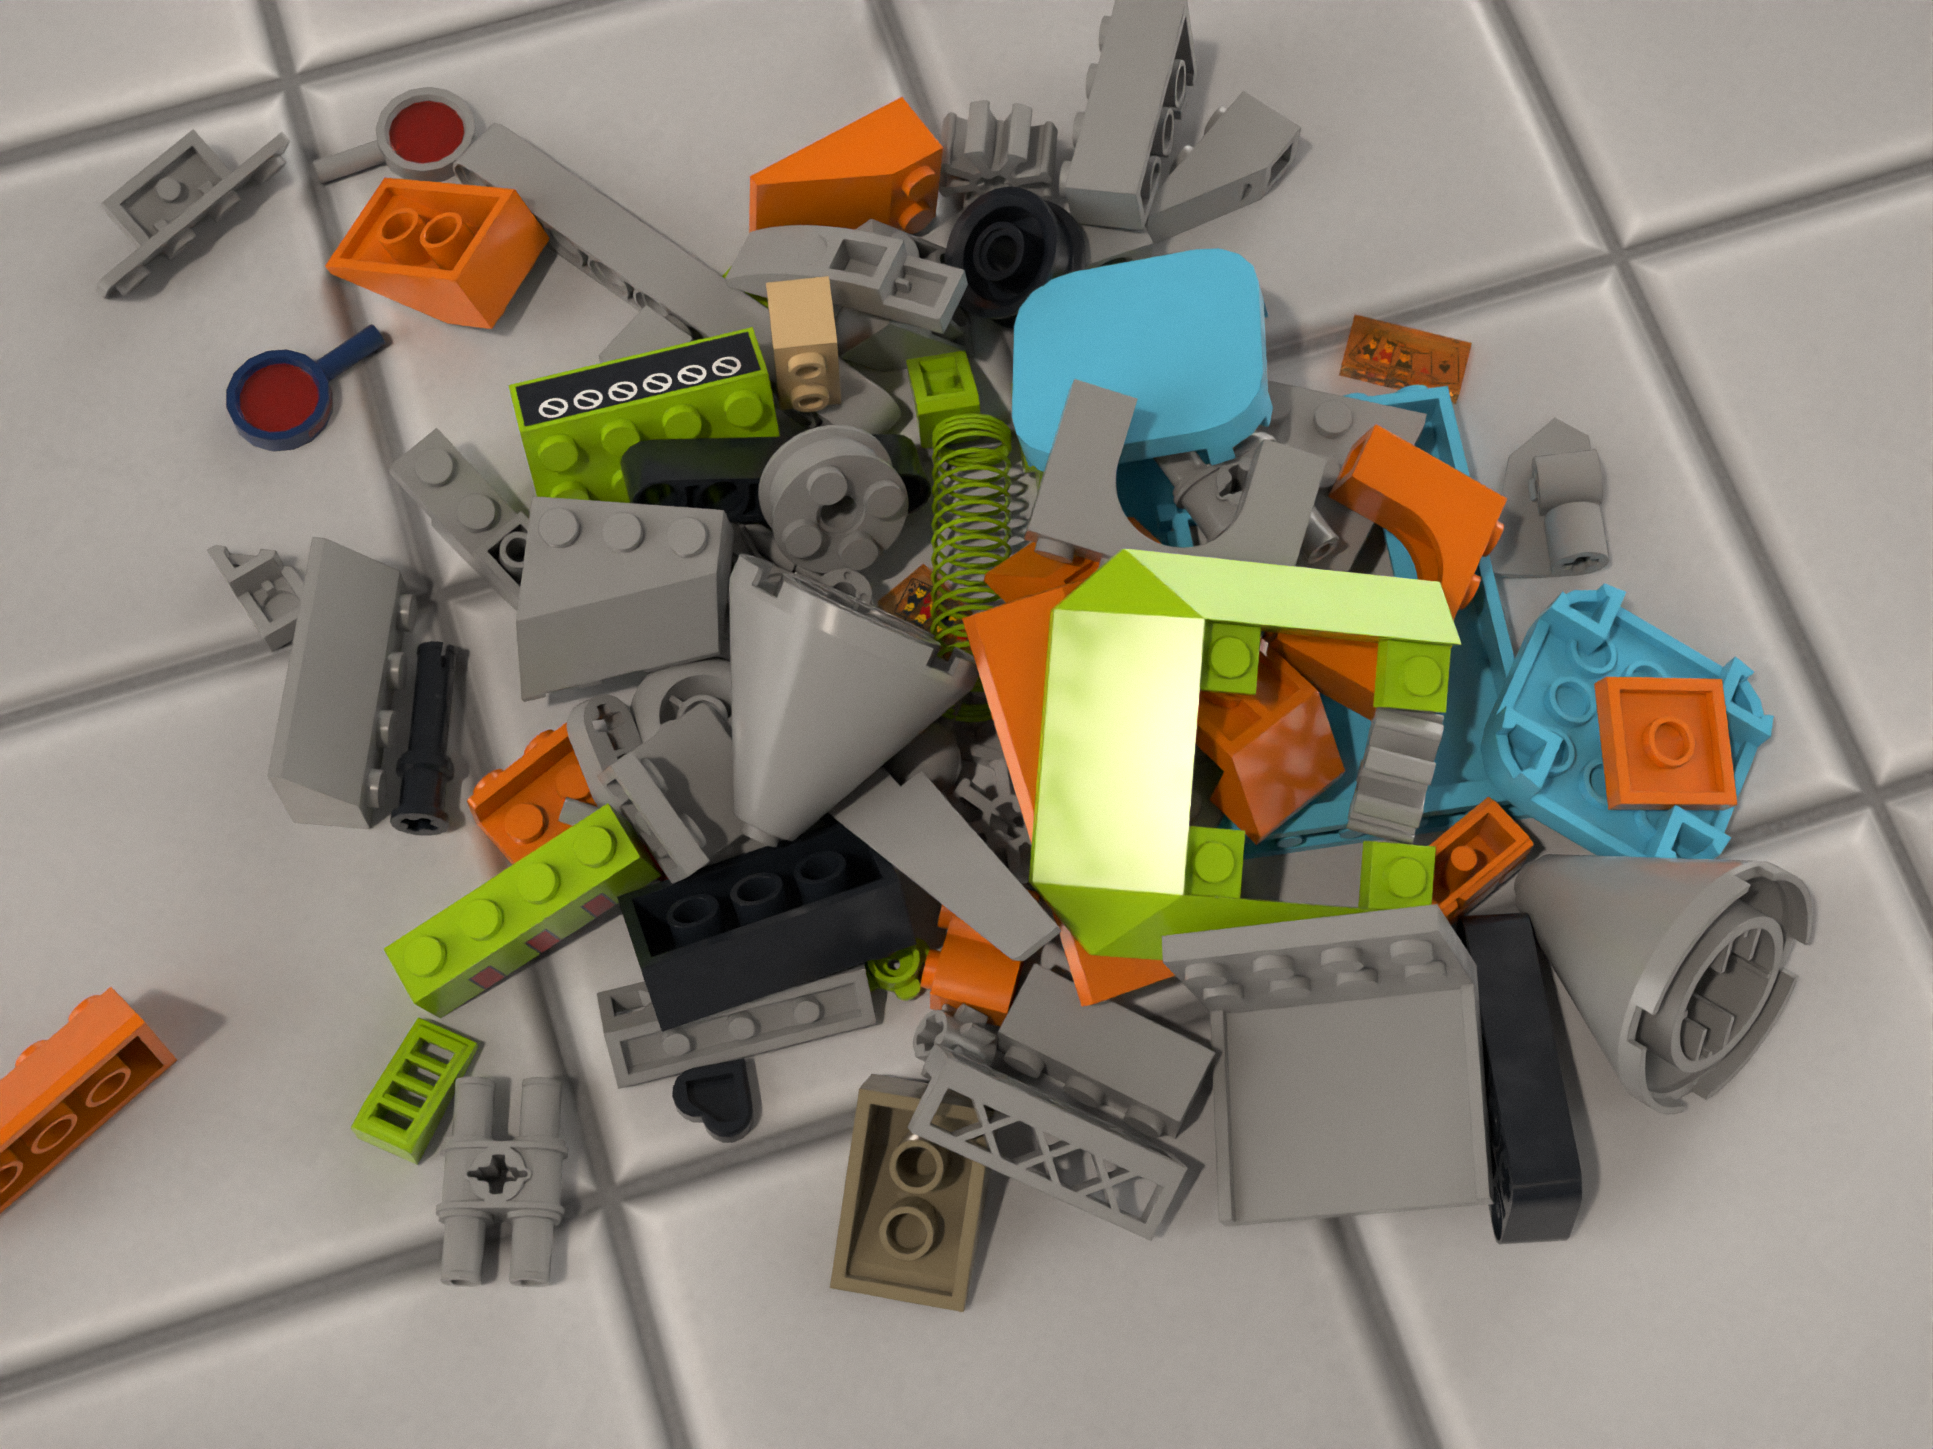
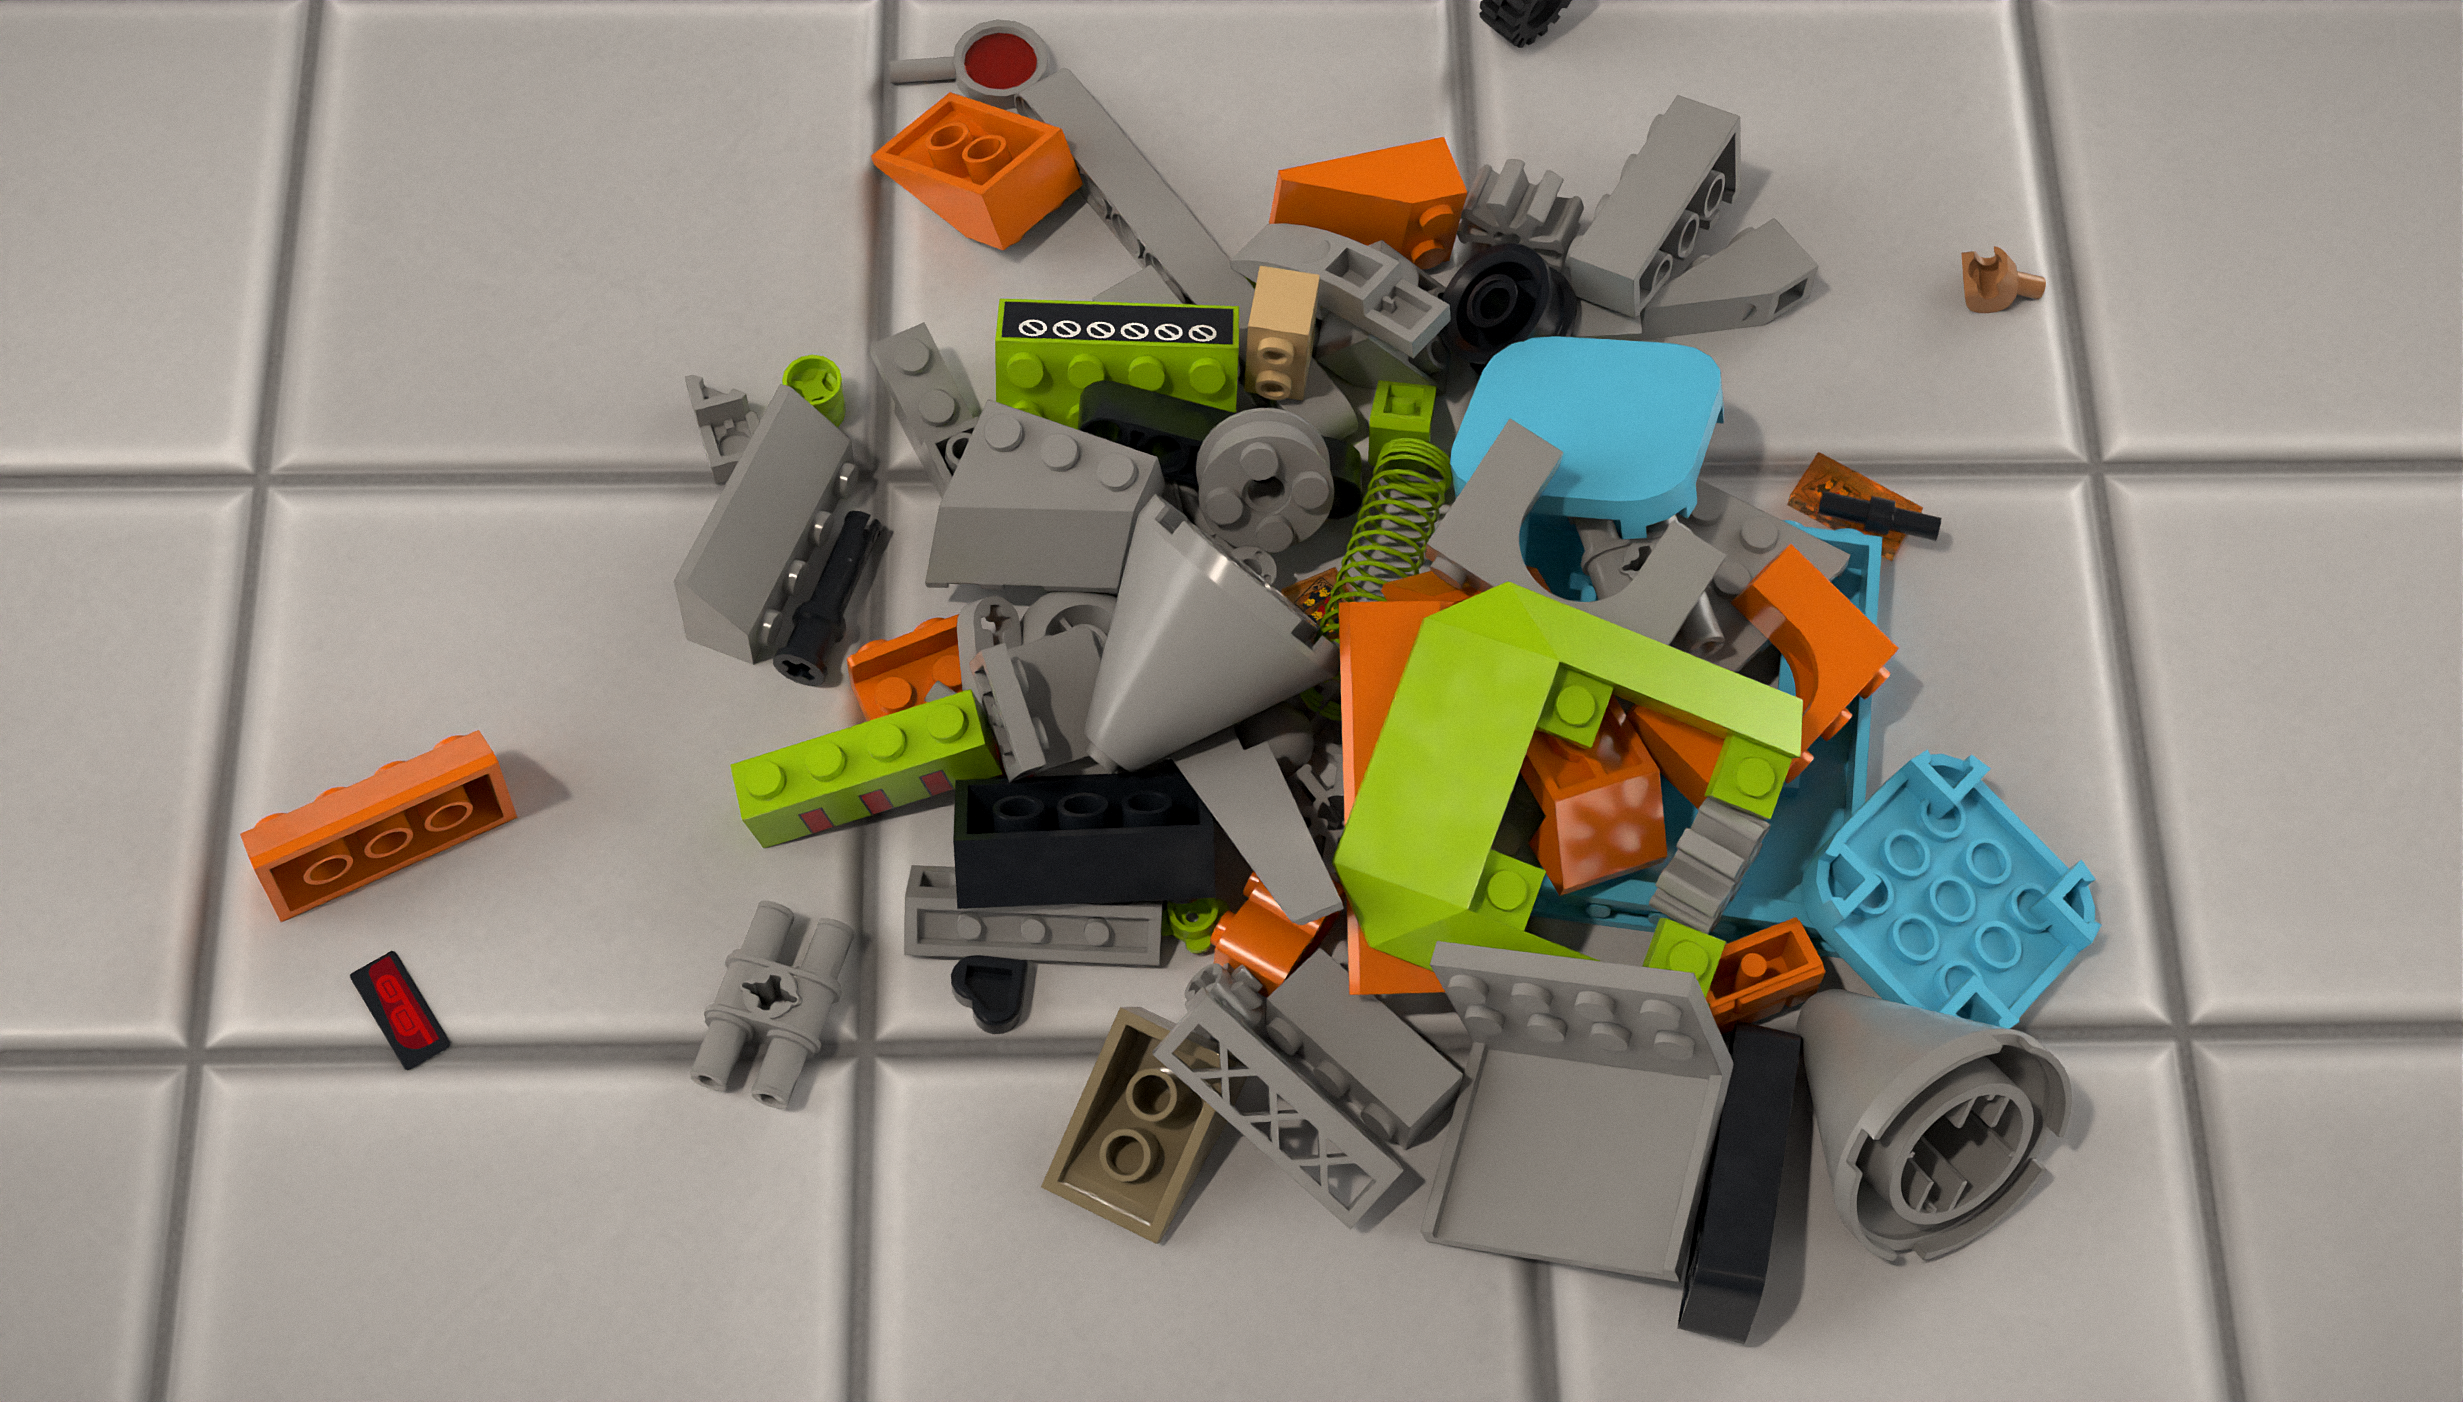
camera: 15 degrees right, 5 degrees down
(119, 1300) = (400, 1010): none -> sticker
(173, 196) = (755, 58): light grey bracket -> none
(286, 397) = (798, 261): piece -> none
(341, 518) = (818, 383): none -> lime wheel
(412, 1143) = (704, 946): lime slope -> none
(1435, 364) = (1879, 515): none -> black bar
(1470, 96) = (1995, 282): none -> medium nougat piece
(1552, 508) = (1949, 680): light grey panel -> none
(1665, 743) = (1983, 917): orange plate -> none

